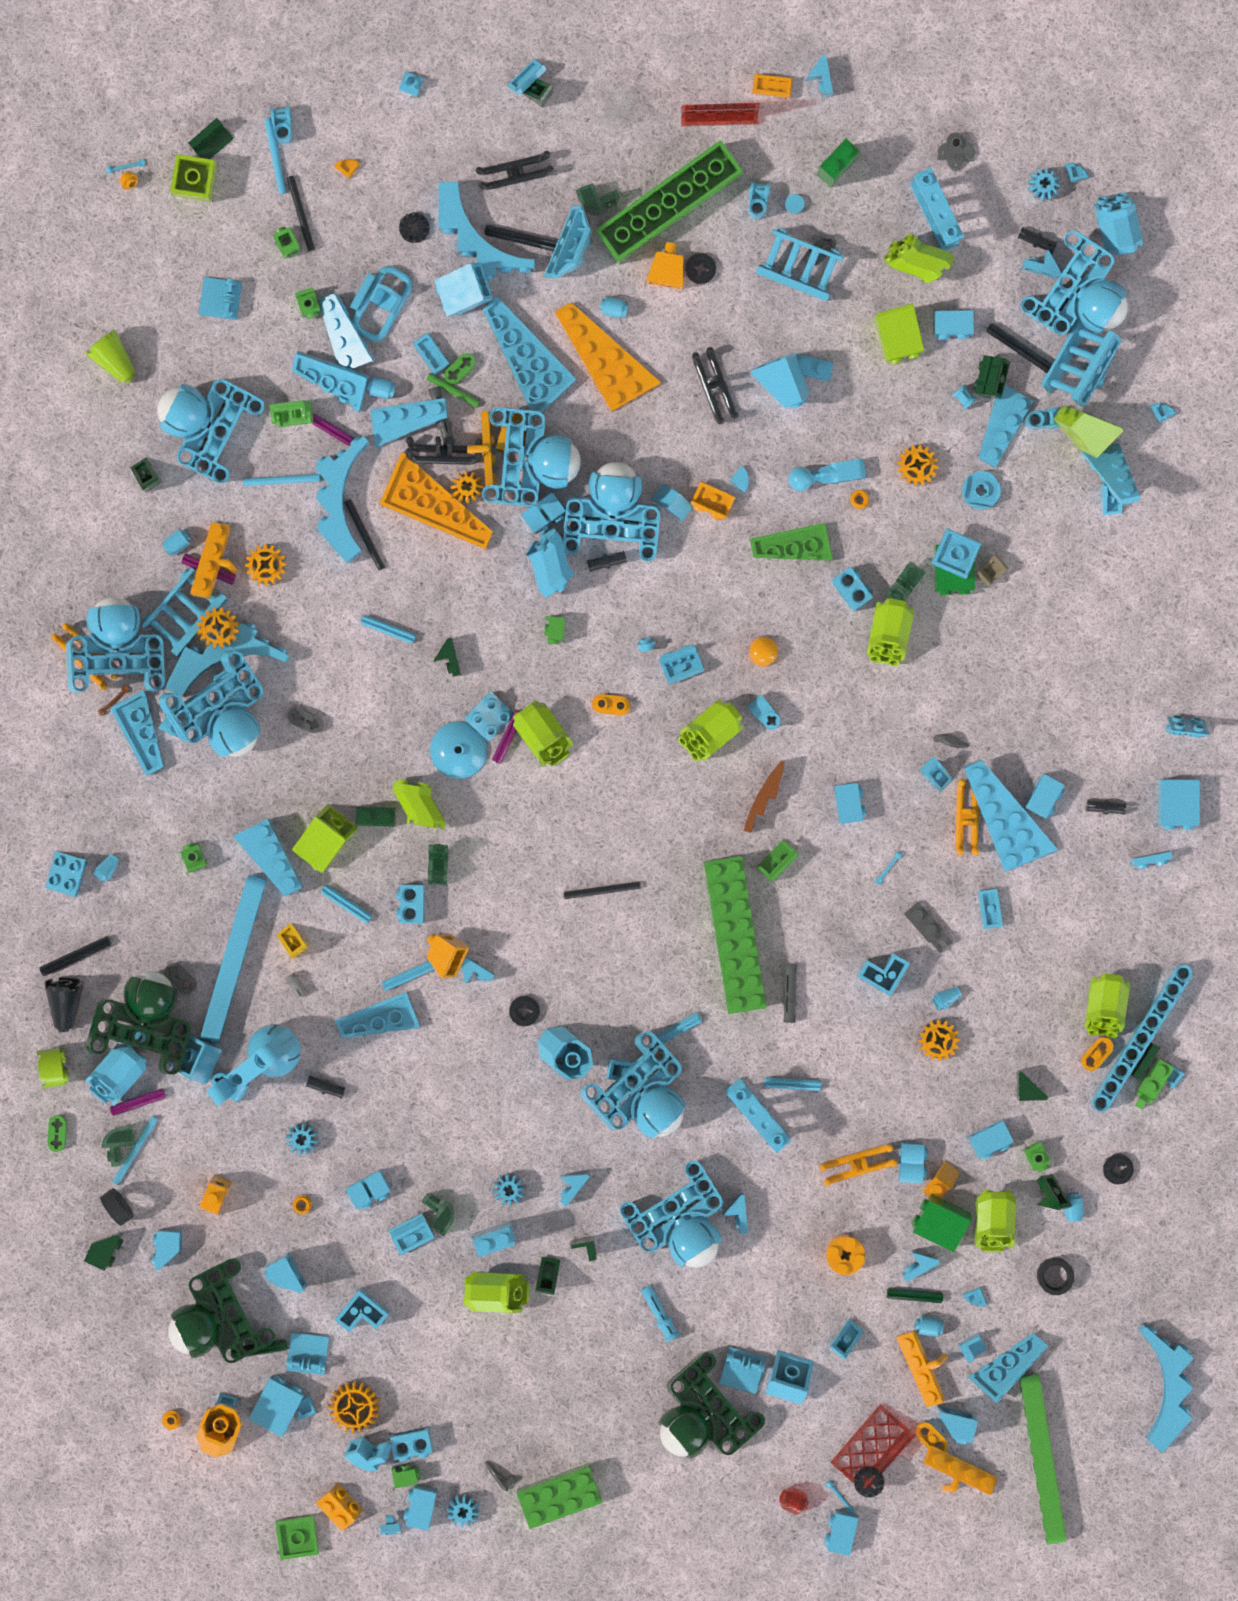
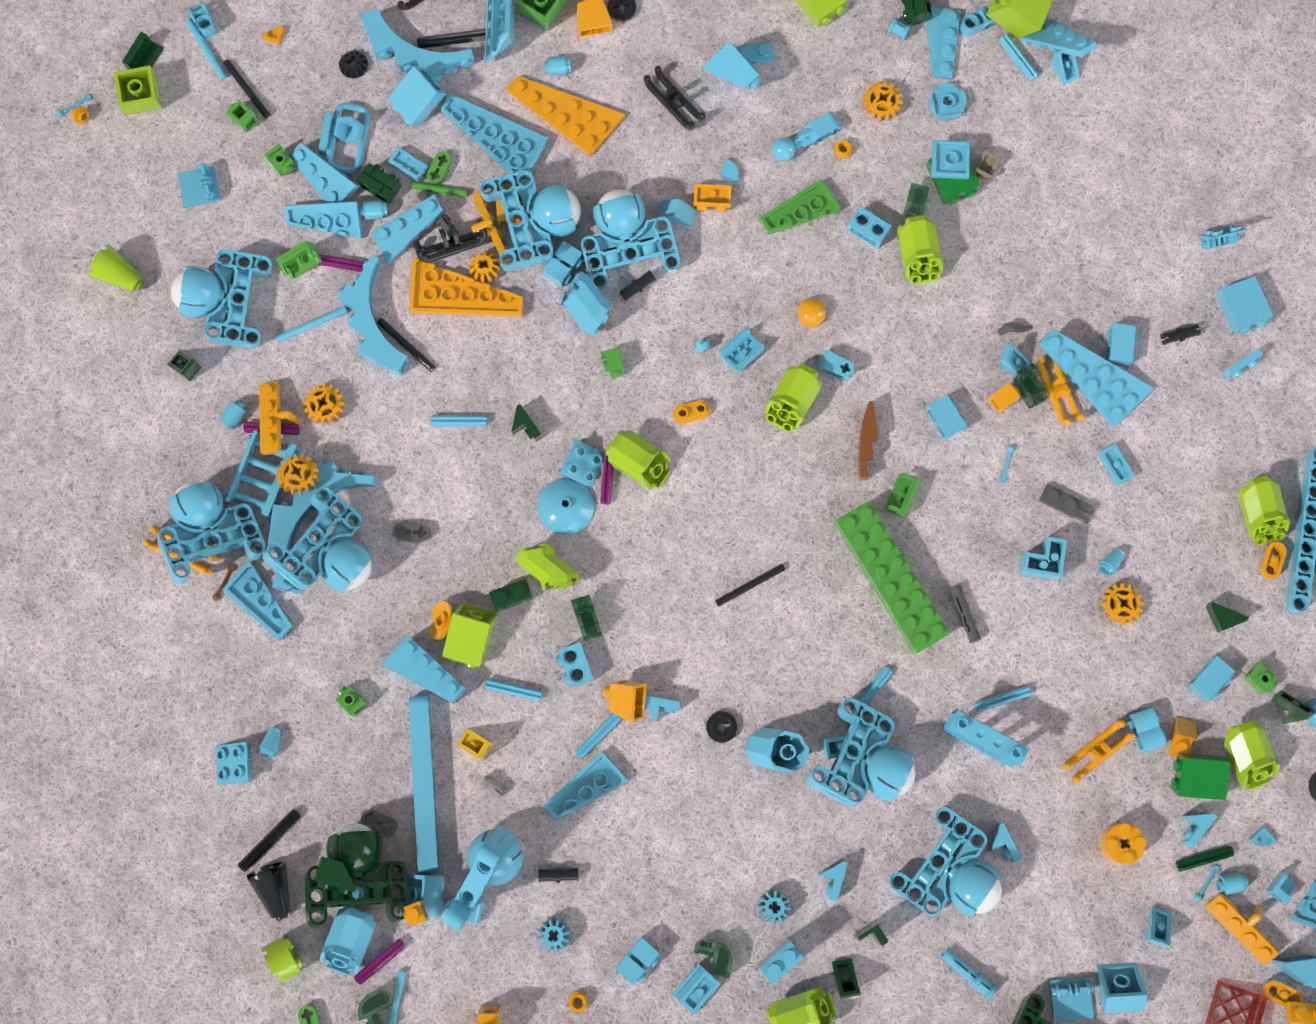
camera: 15 degrees left, 10 degrees down
(125, 1014) = (333, 874): none -> dark green slope
(185, 1075) = (415, 913): none -> light orange brick
(303, 815) = (442, 617): none -> light orange dish
(396, 363) = (379, 183): none -> dark green brick
(894, 1326) = (1215, 869): none -> medium azure hinge
(912, 805) = (1004, 397): none -> light orange brick
(939, 804) = (1030, 388): none -> clear green brick
(1070, 470) = (1018, 57): none -> medium azure axle

